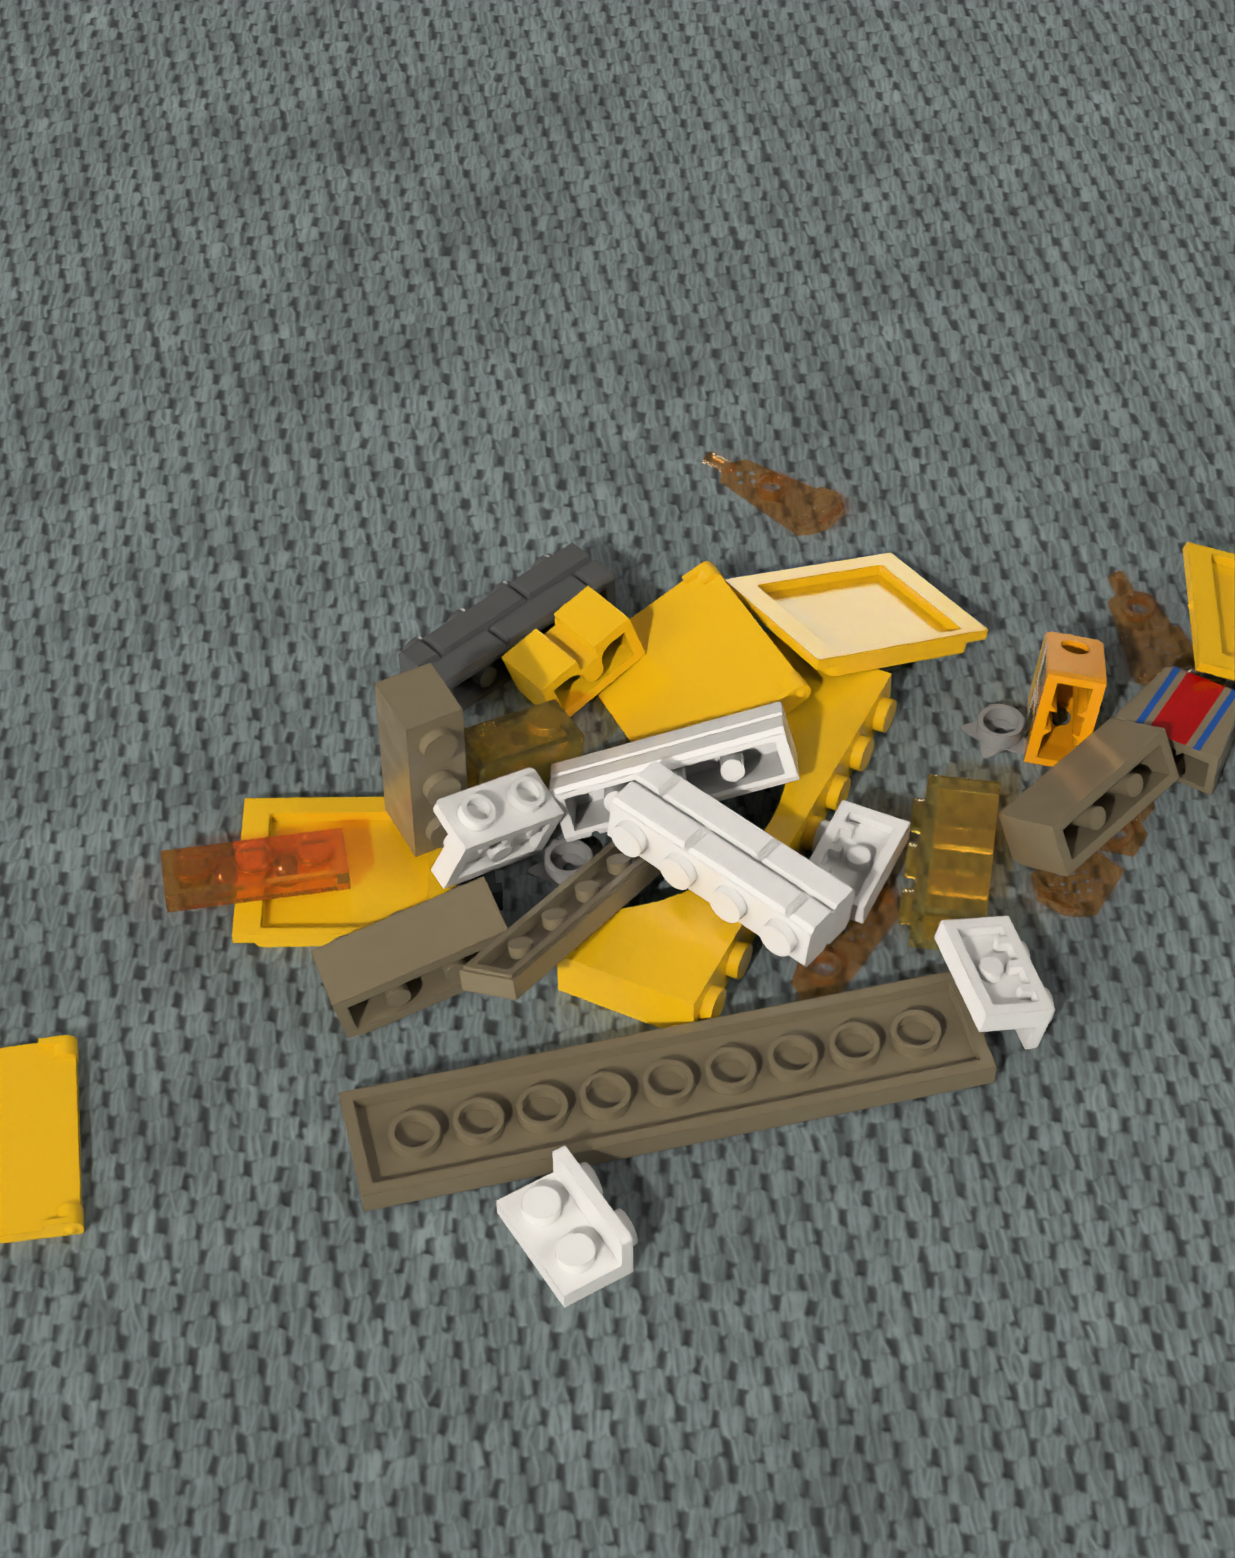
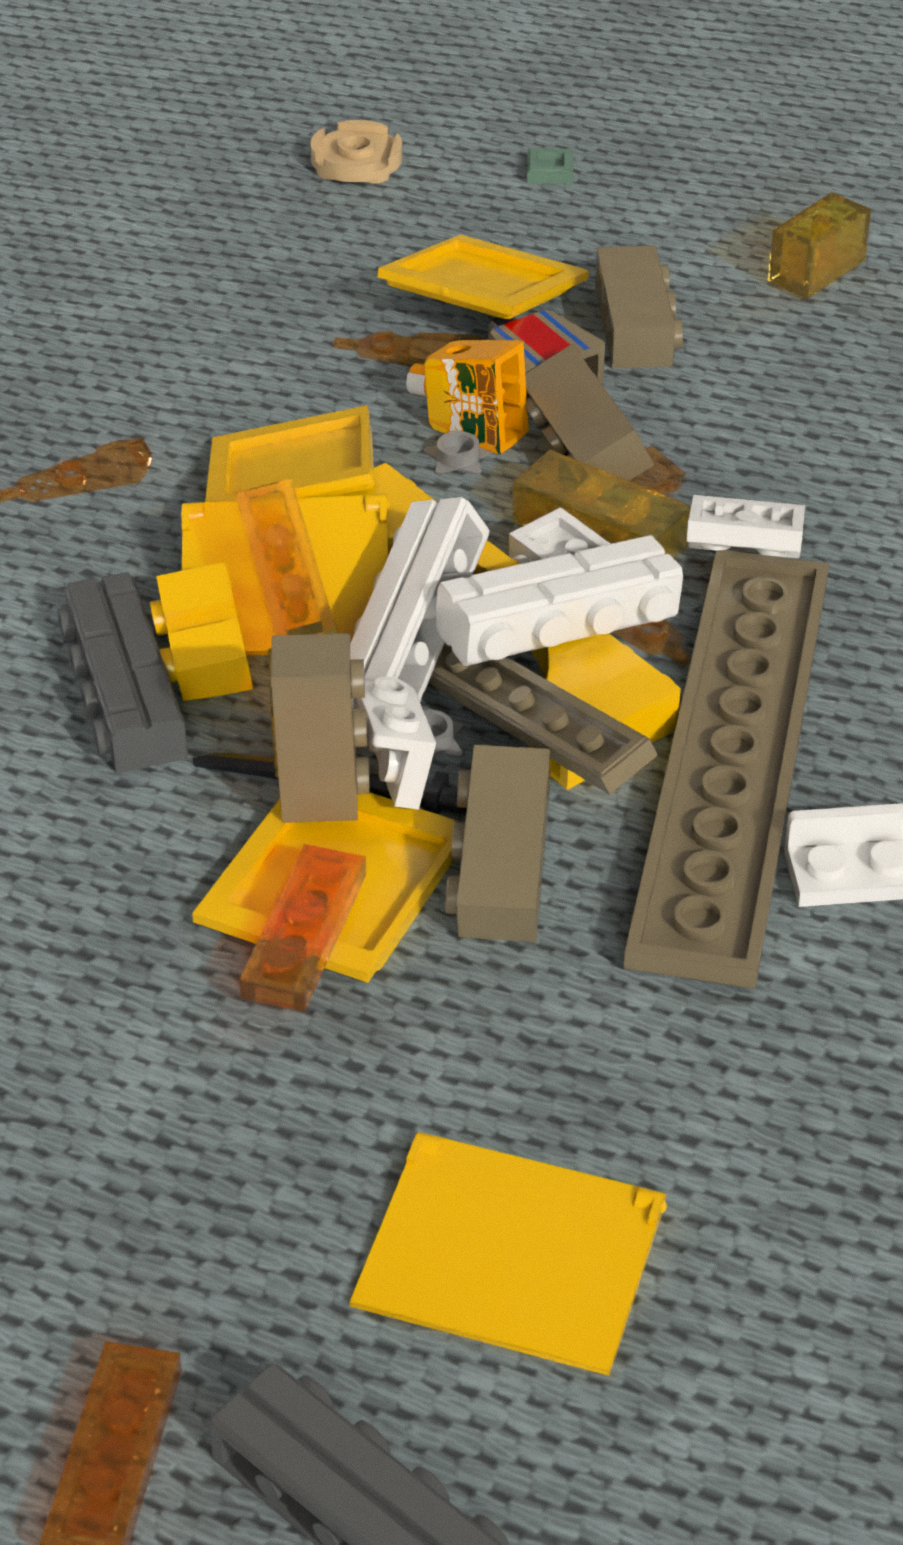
camera: 65 degrees left, 5 degrees down
(650, 666) = (284, 560): none -> clear yellow brick

